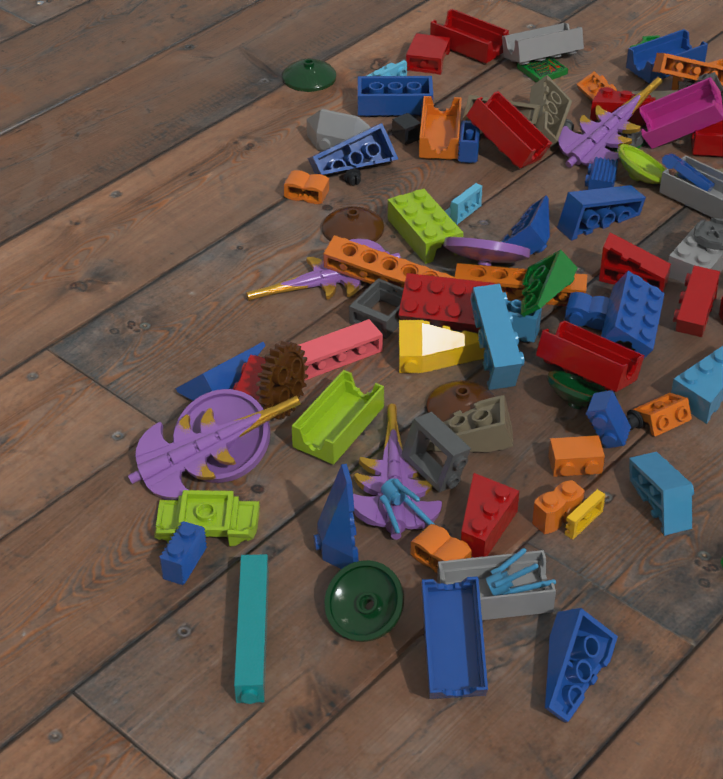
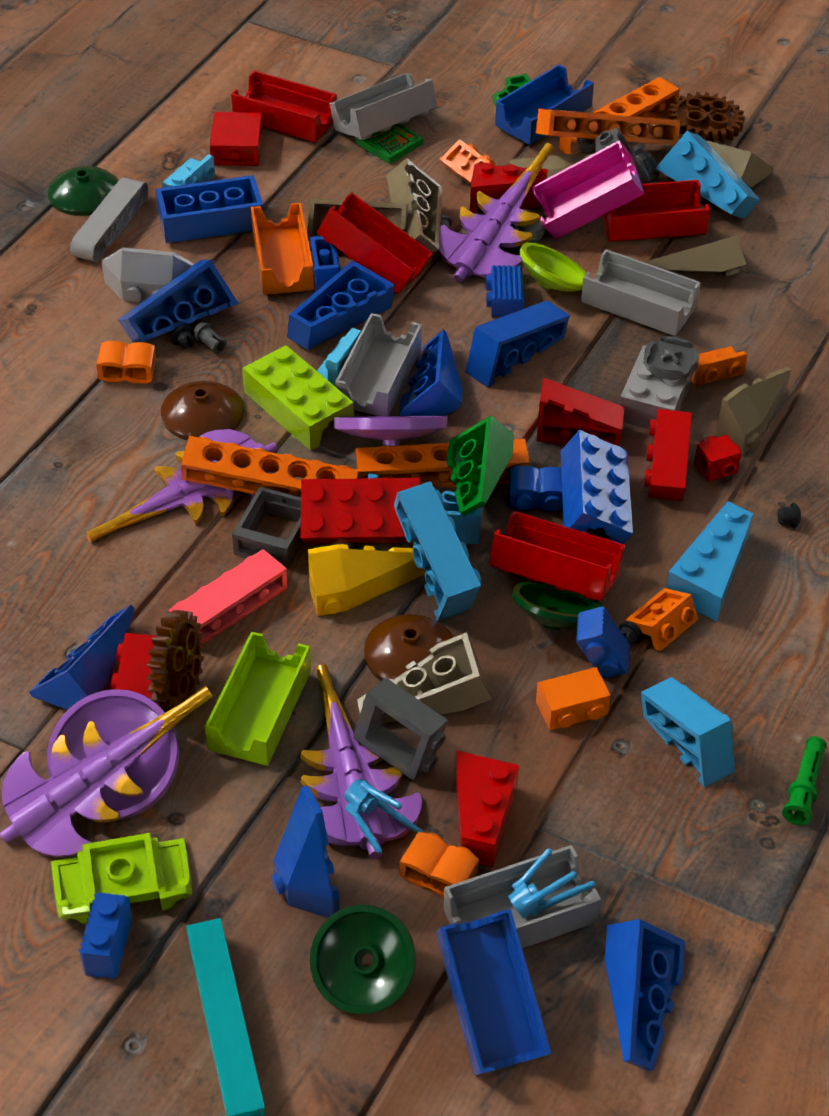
camera: 15 degrees left, 5 degrees up
(321, 94) = (109, 219): none -> light grey beam
(369, 177) = (205, 333): none -> dark grey pin
(406, 128) = (236, 255): black brick -> none
(480, 165) = (339, 305): none -> blue wedge
(491, 211) = (379, 366): none -> light grey brick
(555, 506) = (569, 775): orange brick -> none
(585, 514) = (604, 779): yellow tile -> none
(687, 172) = (613, 272): blue hinge -> none

